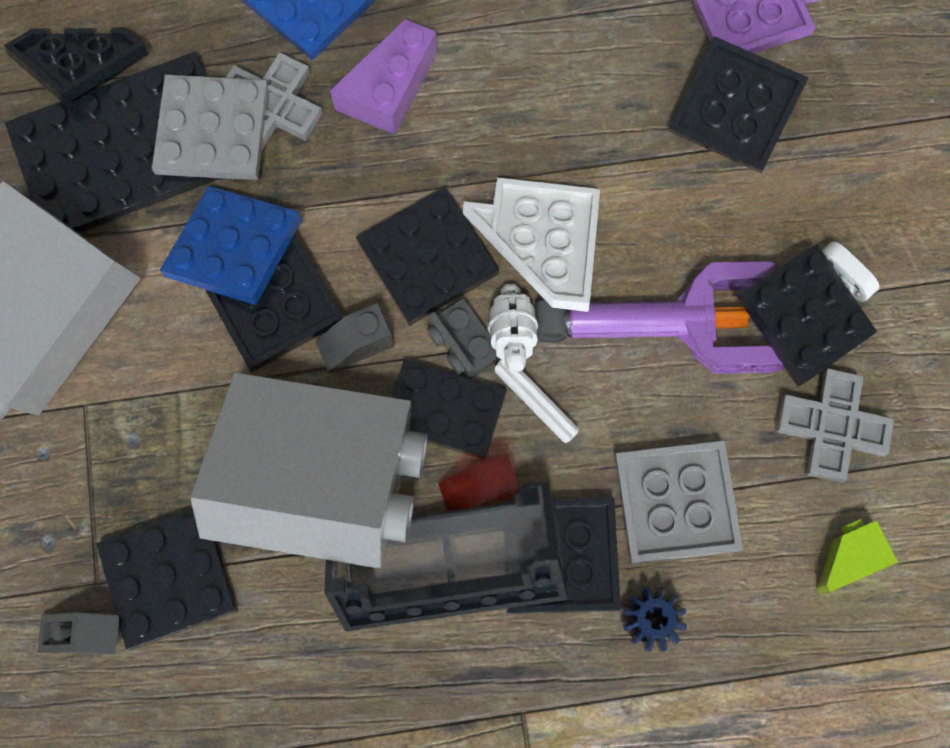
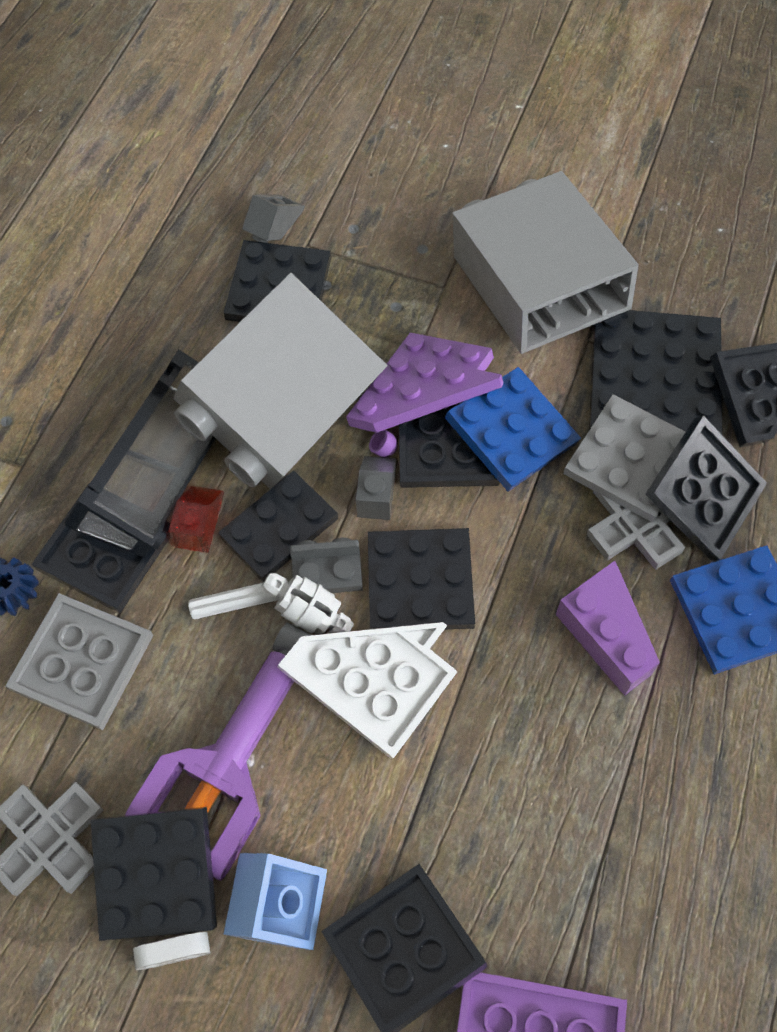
camera: 120 degrees right, 10 degrees down
(212, 337) = (422, 379): none -> medium lavender wing
(213, 52) = (706, 488): none -> black plate
(310, 362) = (383, 444): none -> medium lavender hinge
(765, 217) = (275, 901): none -> light blue slope

